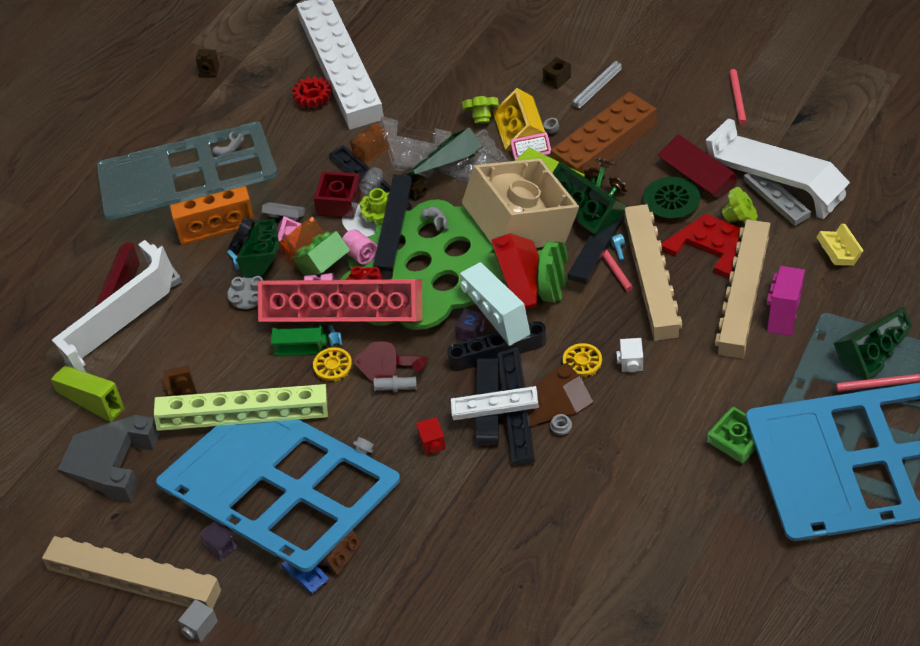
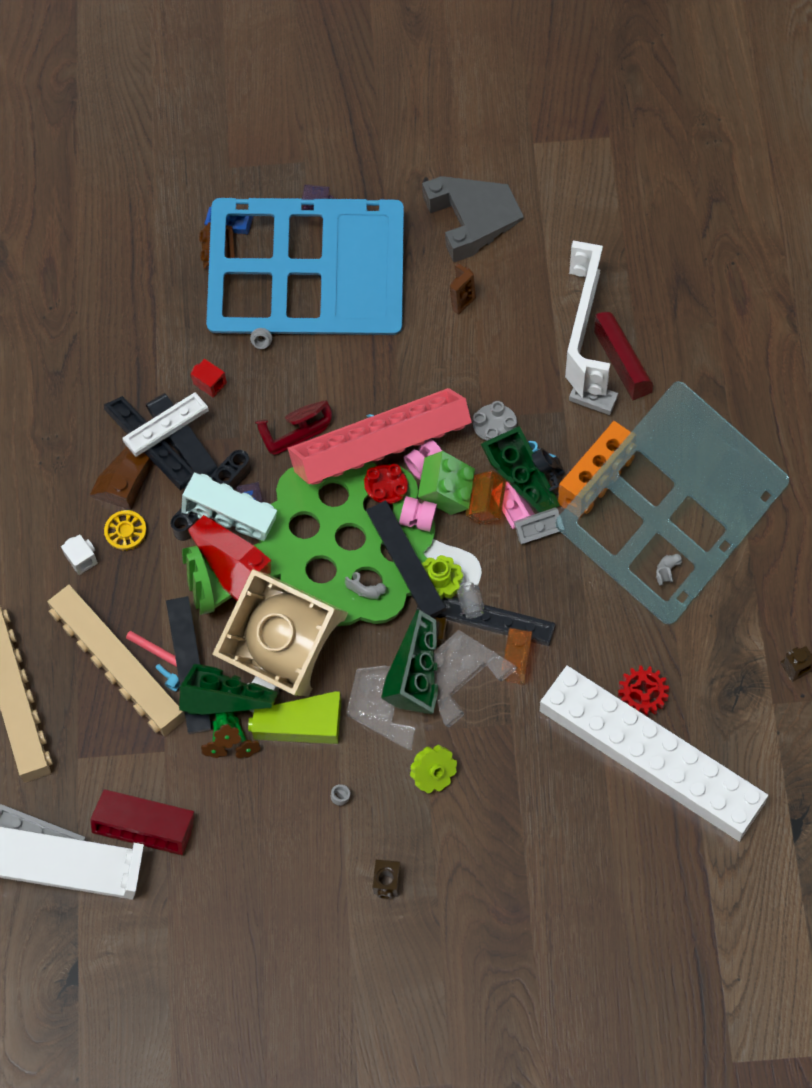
camera: 145 degrees right, 15 degrees up
(89, 391) = (538, 245): lime slope -> none
(130, 573) = (362, 140): tan brick -> none
(197, 621) = (279, 139): light grey brick -> none
(240, 407) = (335, 355): yellowish green brick -> none
(298, 341) = (403, 392): green window -> none
(332, 364) = (353, 399): yellow wheel -> none
(337, 194) = (494, 567): dark red brick -> none
(395, 383) = (280, 408): light grey pin -> none
(517, 117) = (378, 779): yellow slope -> none
(537, 142) = (343, 754): slope -> none
(558, 420) = (99, 451): light grey plate -> none
(596, 85) = (331, 892): light grey axle -> none
(606, 133) = (268, 807): dark orange brick -> none
(685, 199) = (143, 744): dark green piece -> none
(710, 236) = (80, 744): red wing -> none
(737, 96) = (159, 967): coral bar -> none
(740, 207) = (62, 783): lime plant -> none

